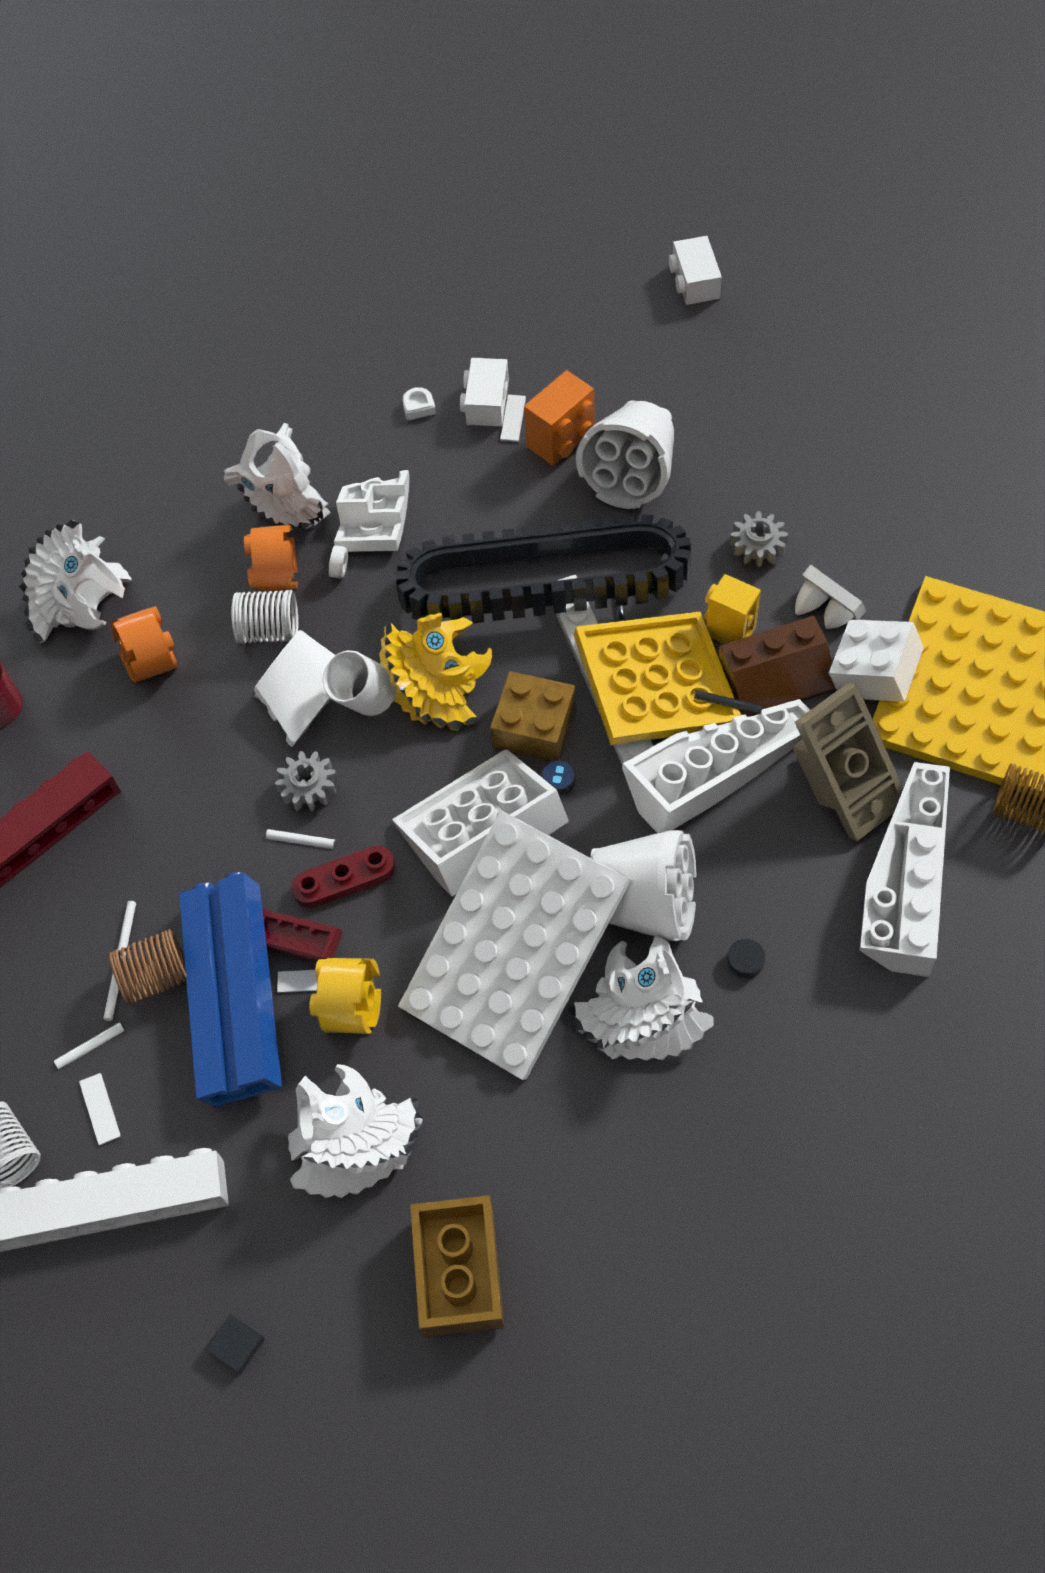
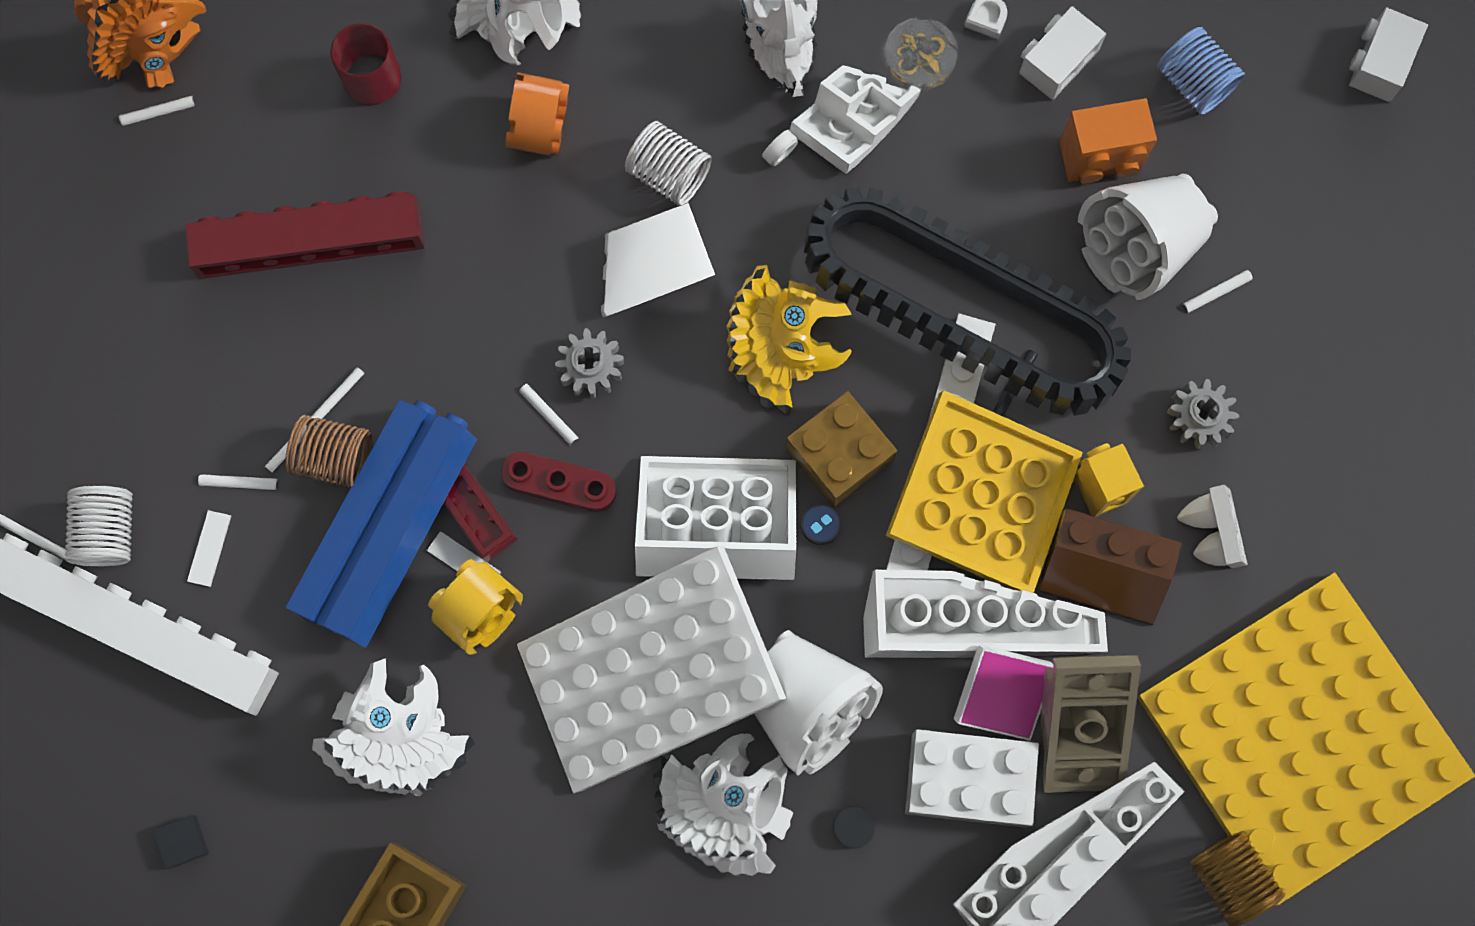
camera: 30 degrees right, 15 degrees up
(272, 558) = (716, 105): orange brick -> none
(376, 694) = (679, 308): white piece -> none
(390, 451) = (920, 53): none -> clear tile
(513, 418) = (1070, 98): white window -> none
(609, 348) = (1221, 90): none -> light blue piece
(706, 465) = (1218, 291): none -> white piece
(729, 702) = (1032, 568): black piece -> none
(775, 790) = (1003, 692): none -> dark pink tile
(801, 863) = (972, 778): none -> white brick
(878, 658) = (1206, 631): white brick -> none

